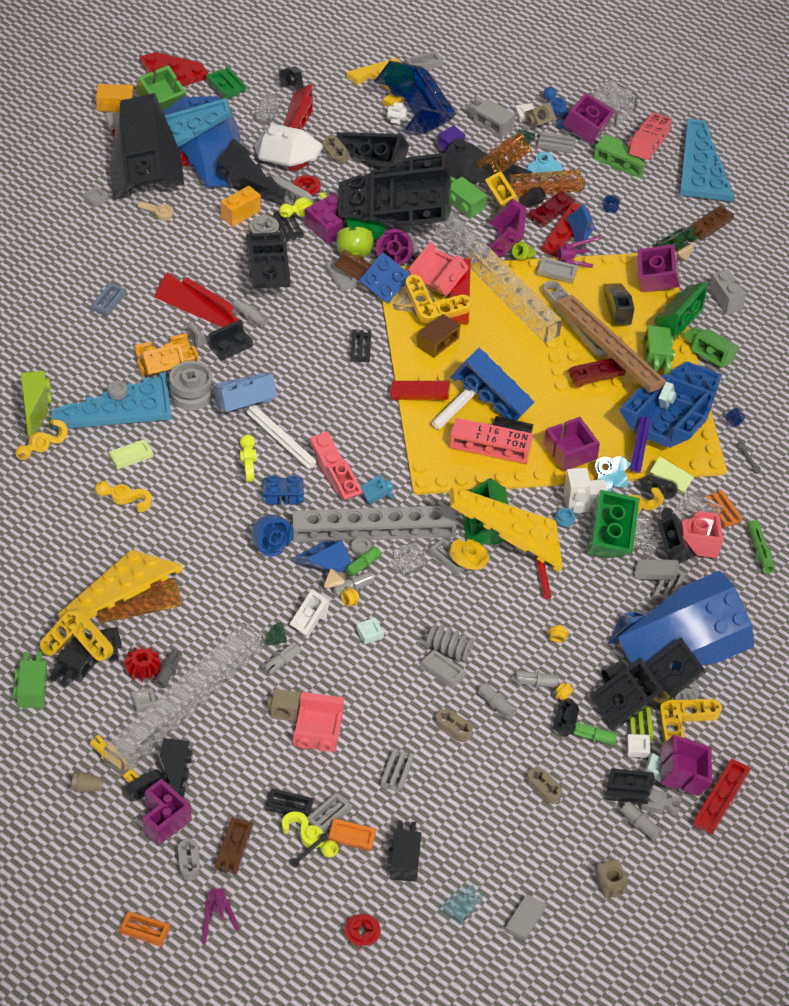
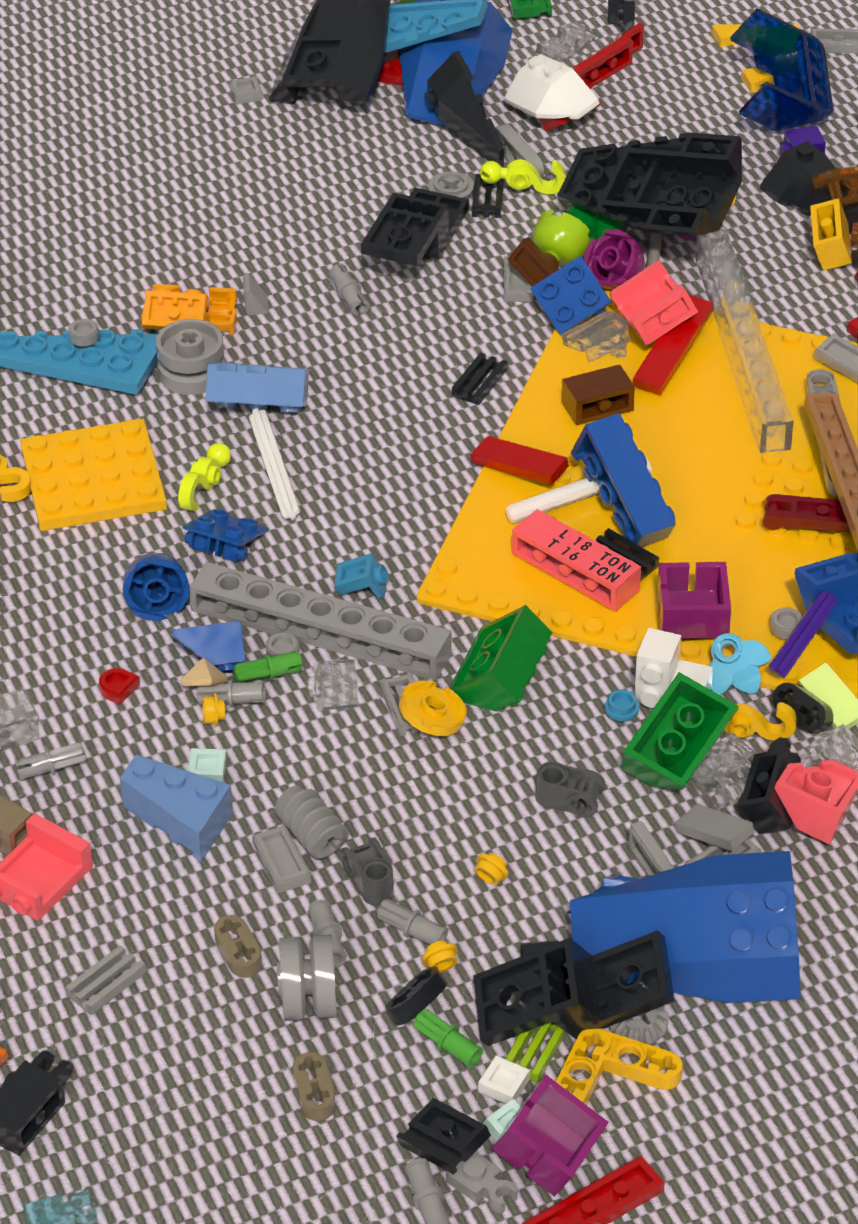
camera: 30 degrees right, 5 degrees down
(111, 301) = (166, 220): sand blue tile -> none
(131, 454) = (46, 421): yellowish green tile -> none
(163, 212) = (322, 132): tan plate -> none
(180, 478) = (93, 474): none -> yellow plate
(195, 300) = (285, 255): red wedge -> none
(229, 340) = (293, 316): black bracket -> none
(240, 206) = (432, 151): light orange brick -> none
(276, 635) = (69, 728): clear green tile -> none
(284, 601) = (118, 684): none -> red tile
(308, 181) = (559, 149): red gear -> none
(312, 609) = (136, 706): white slope -> none
(324, 219) = (538, 193): magenta brick -> none
(333, 151) = (629, 115): dark tan beam -> none
(334, 467) = (318, 523): coral slope -> none
(370, 657) = (178, 802): none -> medium blue wedge
(375, 147) = (670, 119): black wedge -> none
(397, 113) = (744, 89): white gear -> none
(434, 307) = (614, 354): yellow beam -> none
(467, 197) = (773, 224): bright green hinge -> none
(496, 658) = (369, 871): none -> dark grey piece
(510, 226) = (803, 278): magenta panel -> none
(511, 728) = (307, 977): none -> light grey wheel
(514, 524) = (518, 685): yellow wing -> none
(523, 251) = (809, 318): lime cone -> none
(543, 579) = (530, 776): red bar -> none
(569, 574) = (565, 788): none -> dark grey piece
(621, 440) = (784, 622): none -> light grey tile
(635, 597) = (646, 850): none -> light grey tile

